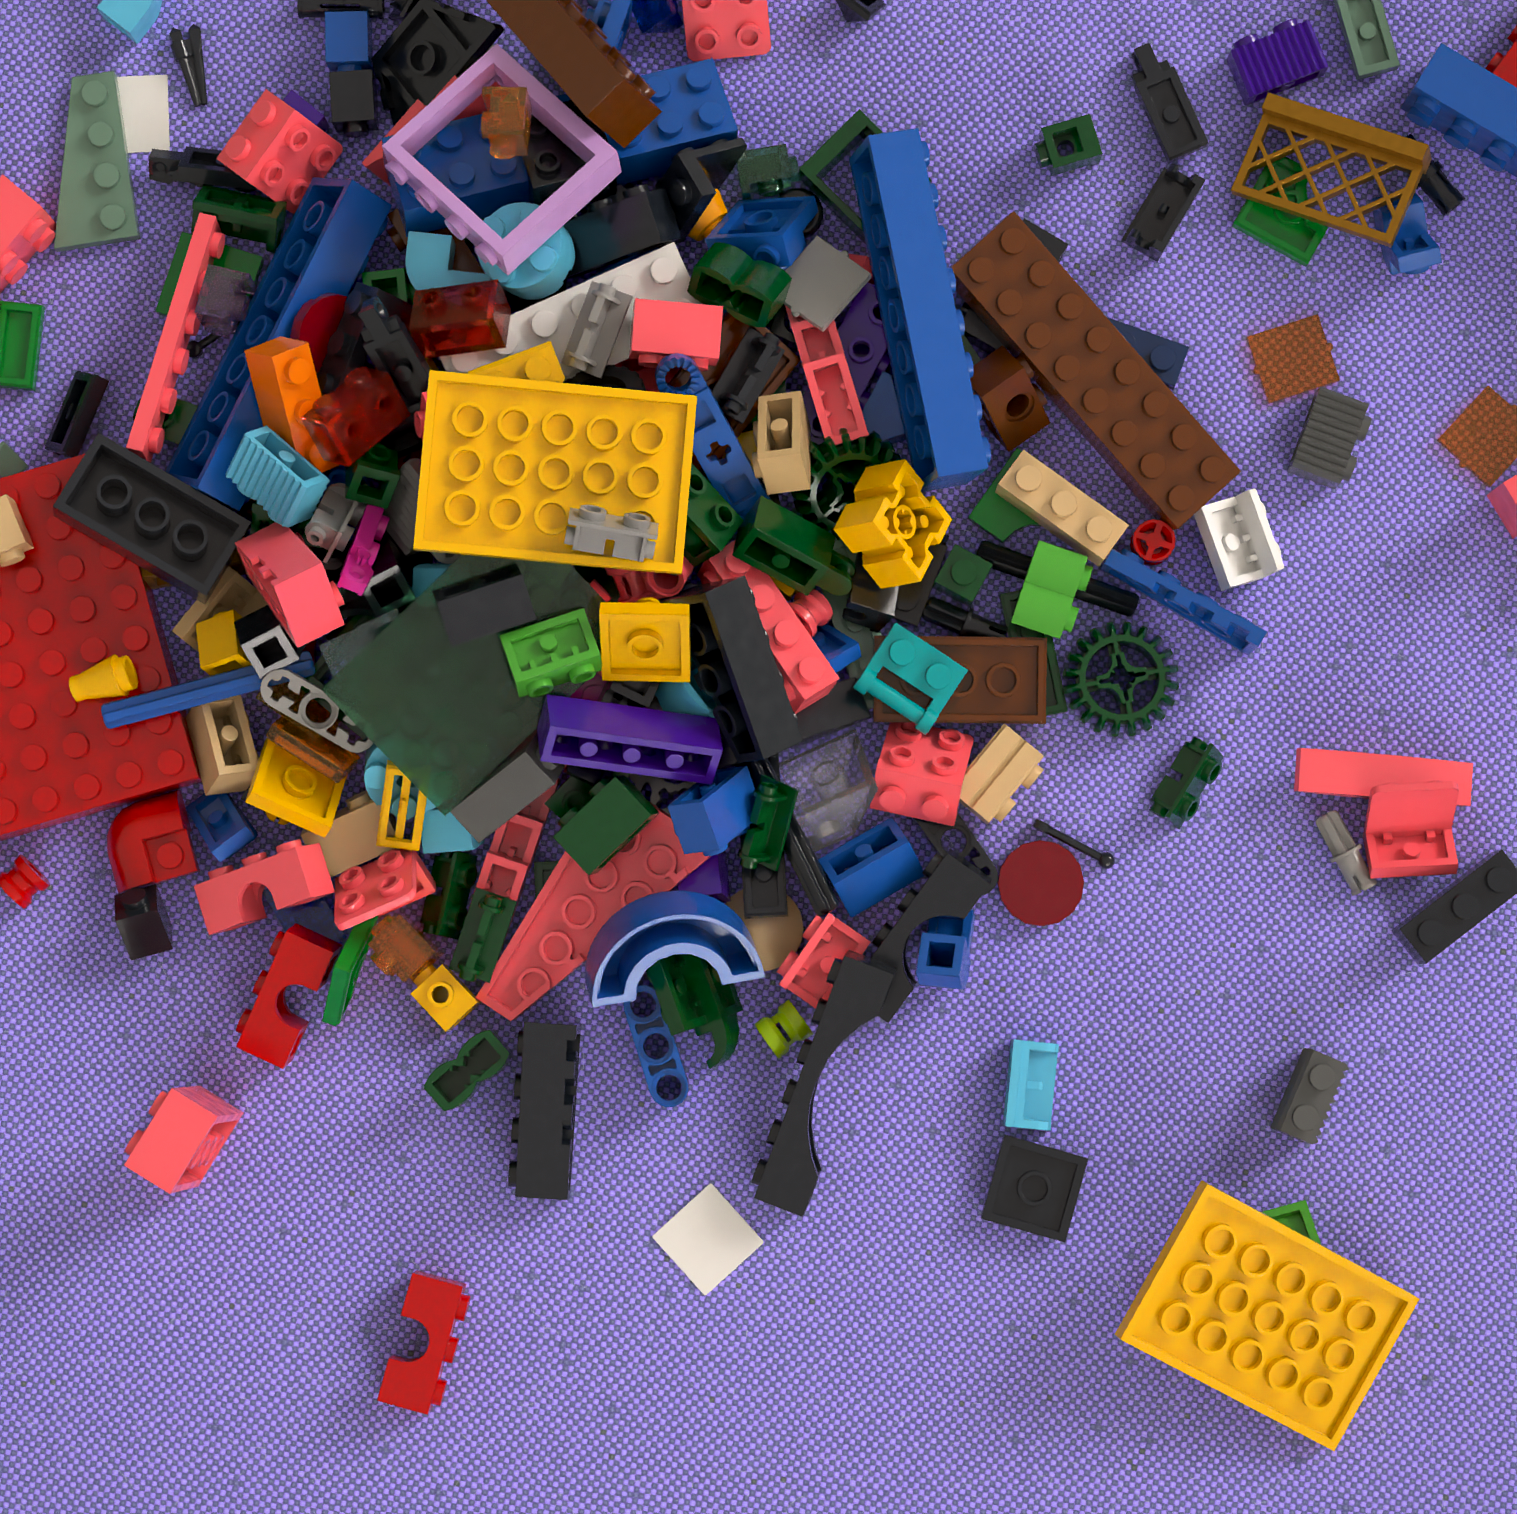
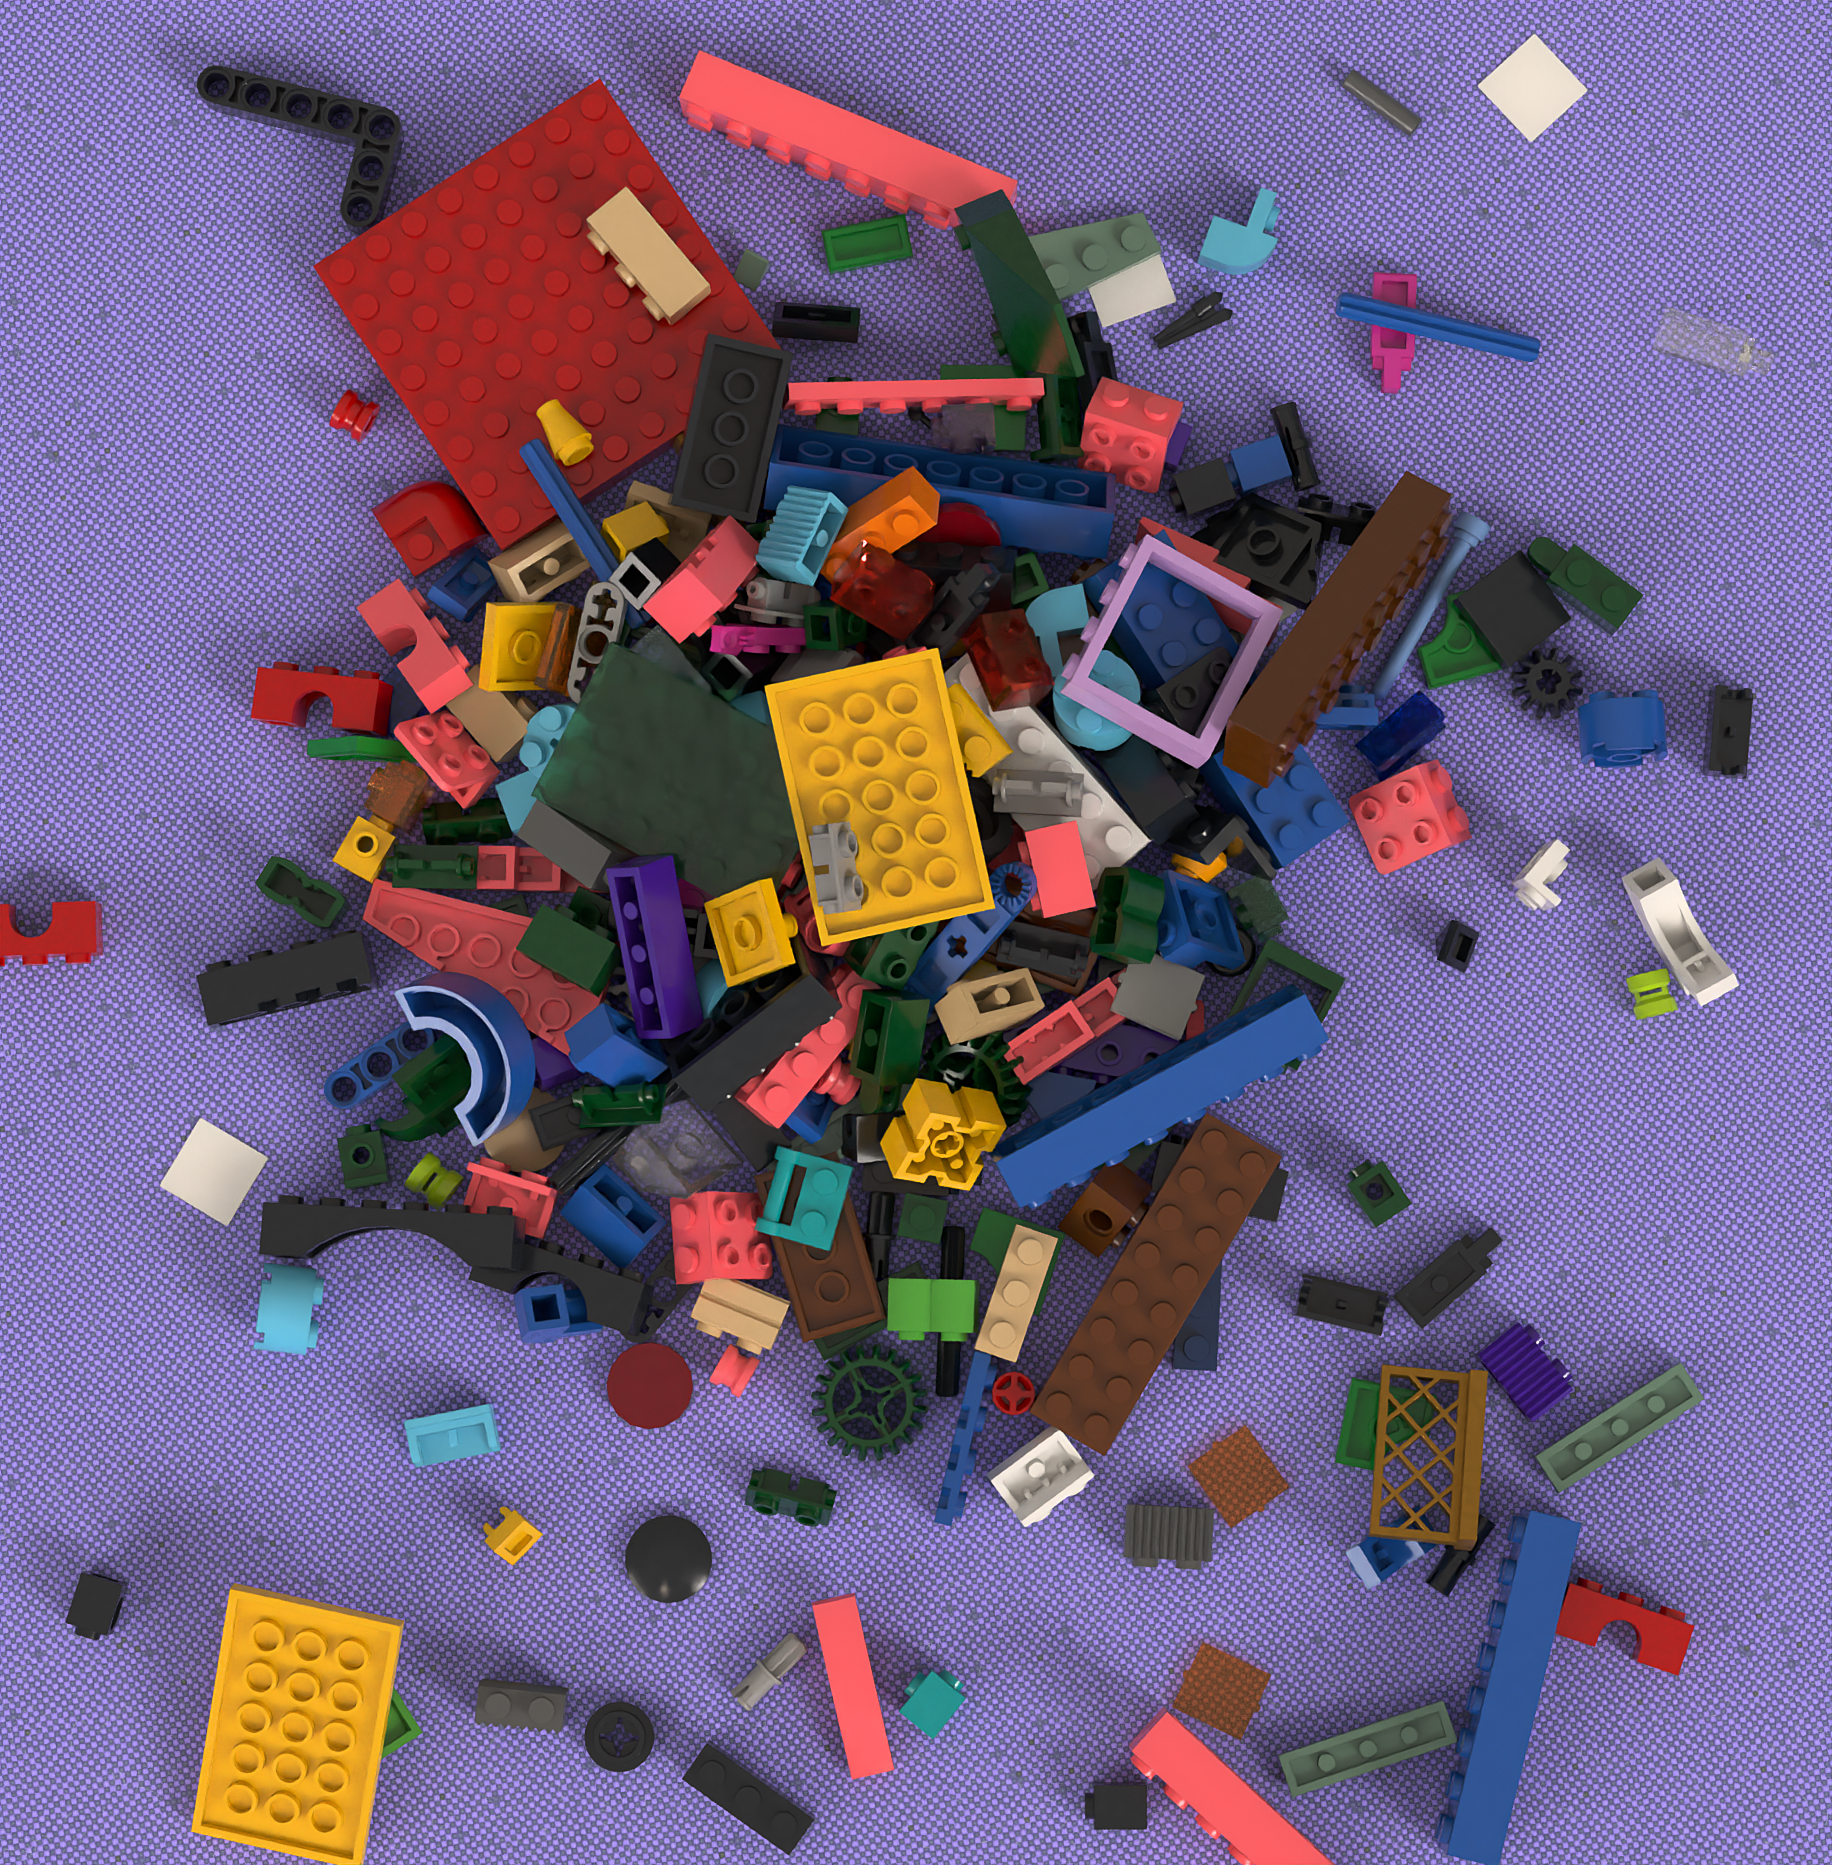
camera: 70 degrees right, 0 degrees up
(123, 194) = (1026, 307): none -> dark green wedge
(143, 922) = (350, 541): black brick -> none
(181, 1138) = (153, 645): coral brick -> none
(398, 841) = (497, 758): yellow tile -> none
(484, 605) = (735, 769): black hinge -> none
(506, 121) = (1203, 645): clear orange brick -> none
(552, 653) = (711, 847): bright green bracket -> none
(757, 1087) = (375, 1170): none -> dark green brick
(864, 1205) = (287, 1309): none -> medium azure brick
(1034, 1188) = (355, 1468): black plate -> none
(1051, 797) = (734, 1370): none -> coral wheel
(1090, 1477) = (96, 1605): none -> black brick
(1105, 859) = (692, 1440): black hinge -> none
(1145, 1057) = (512, 1536): none -> yellow tile
(1210, 915) = (668, 1559): none -> black dish
(1382, 1004) = (604, 1751): none -> black gear
(1411, 829) = (807, 1727): coral bracket -> none
(1419, 706) = (932, 1700): none -> teal brick

